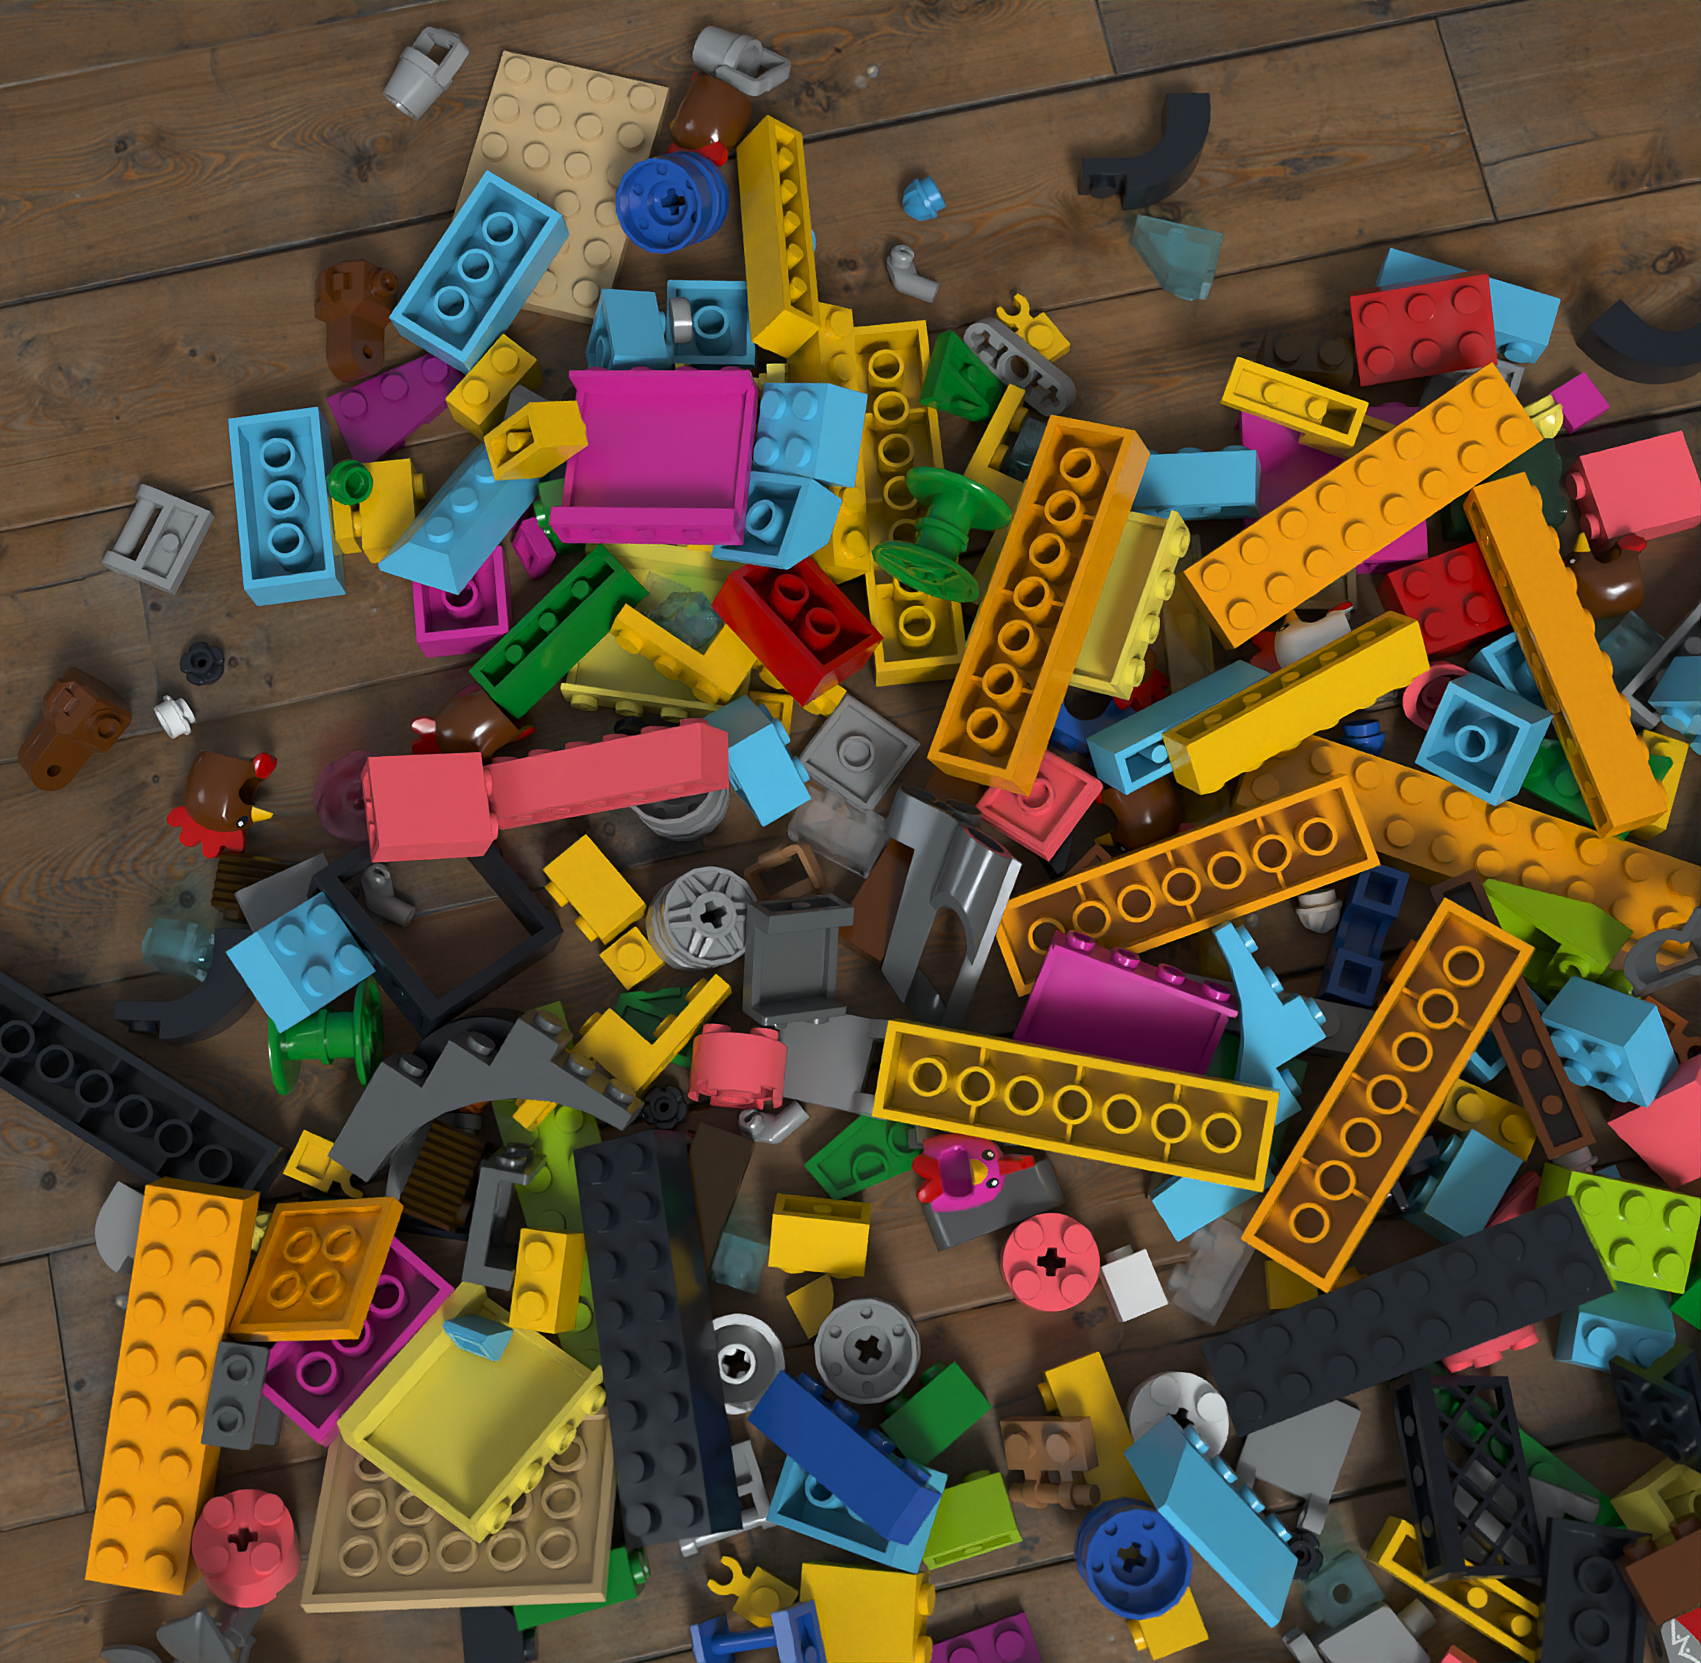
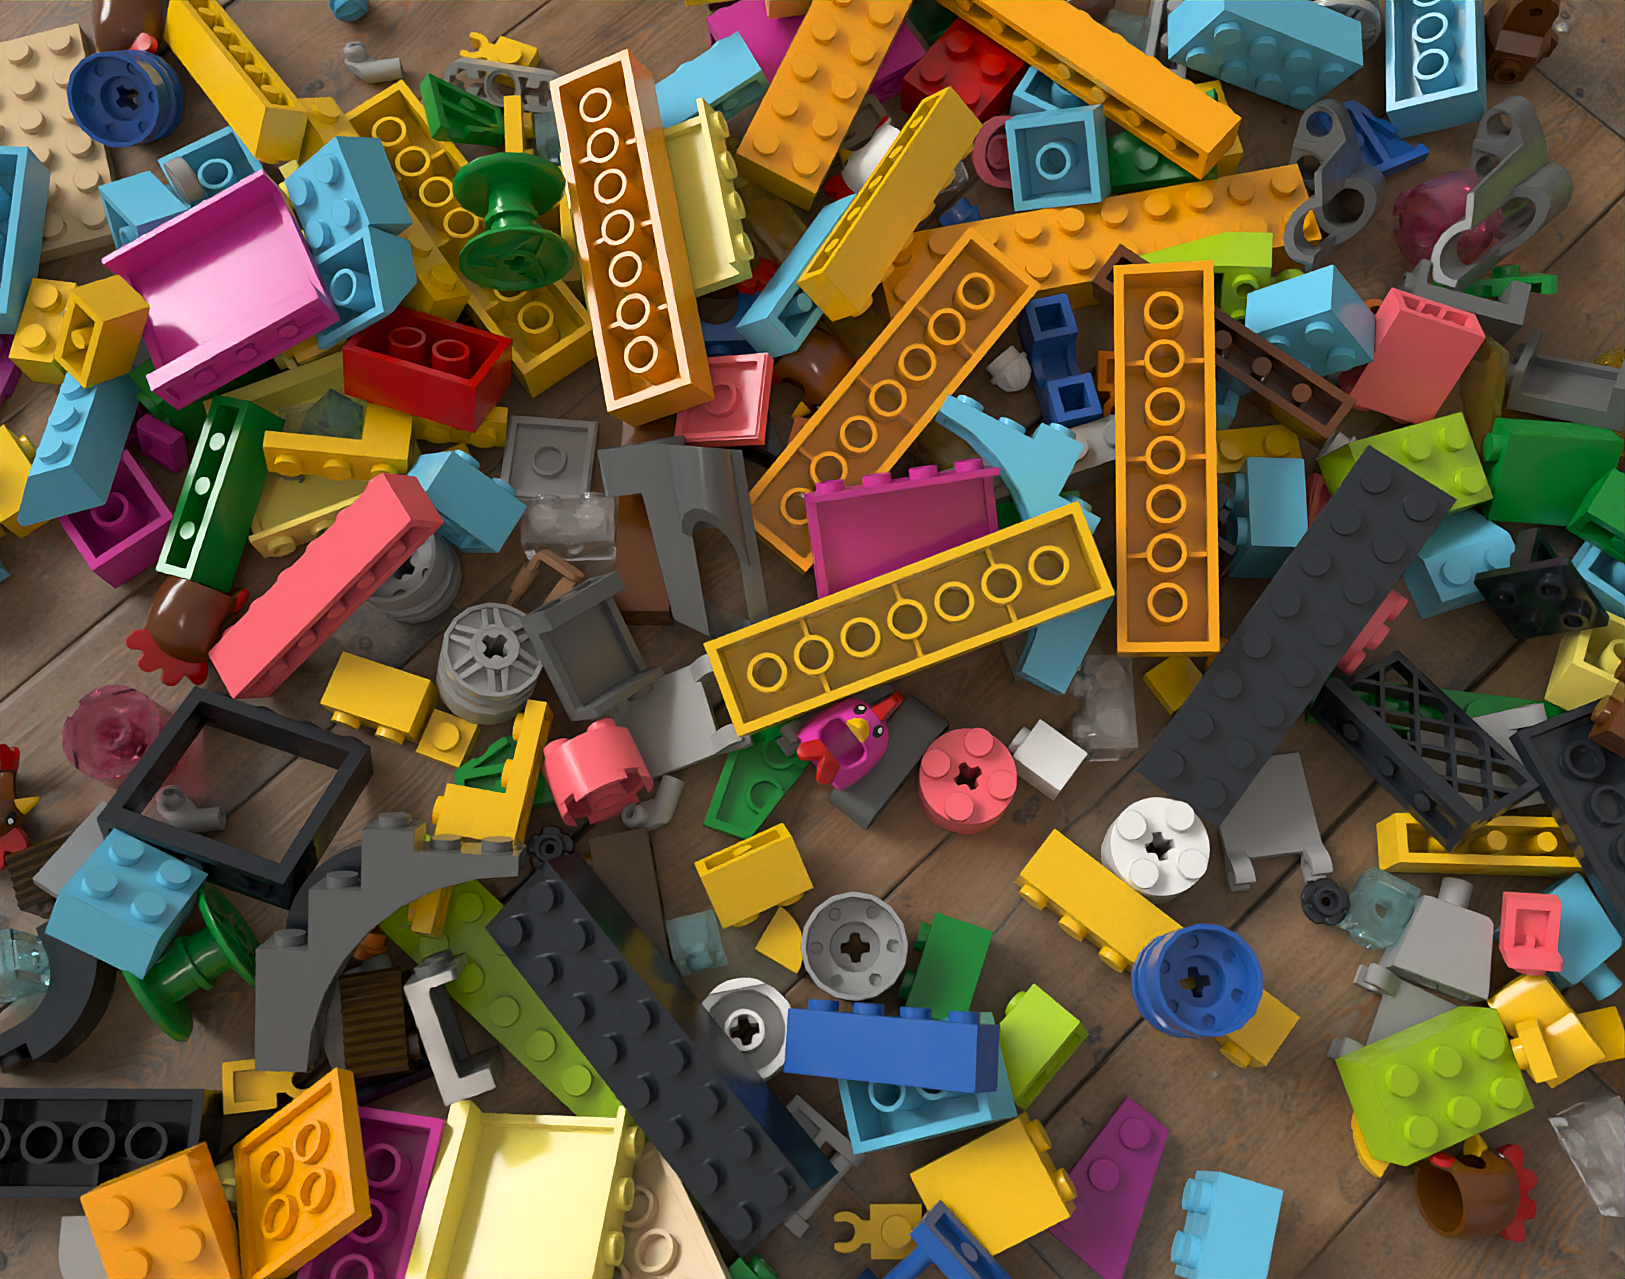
camera: 30 degrees left, 5 degrees down
(428, 806) = (177, 702): coral brick -> none
(479, 1335) = (492, 1151): medium azure slope -> none
(547, 1279) = (527, 1059): yellow brick -> none
(1052, 1445) = (1063, 933): medium nougat plate -> none
(1216, 1515) = (1241, 899): medium azure slope -> none

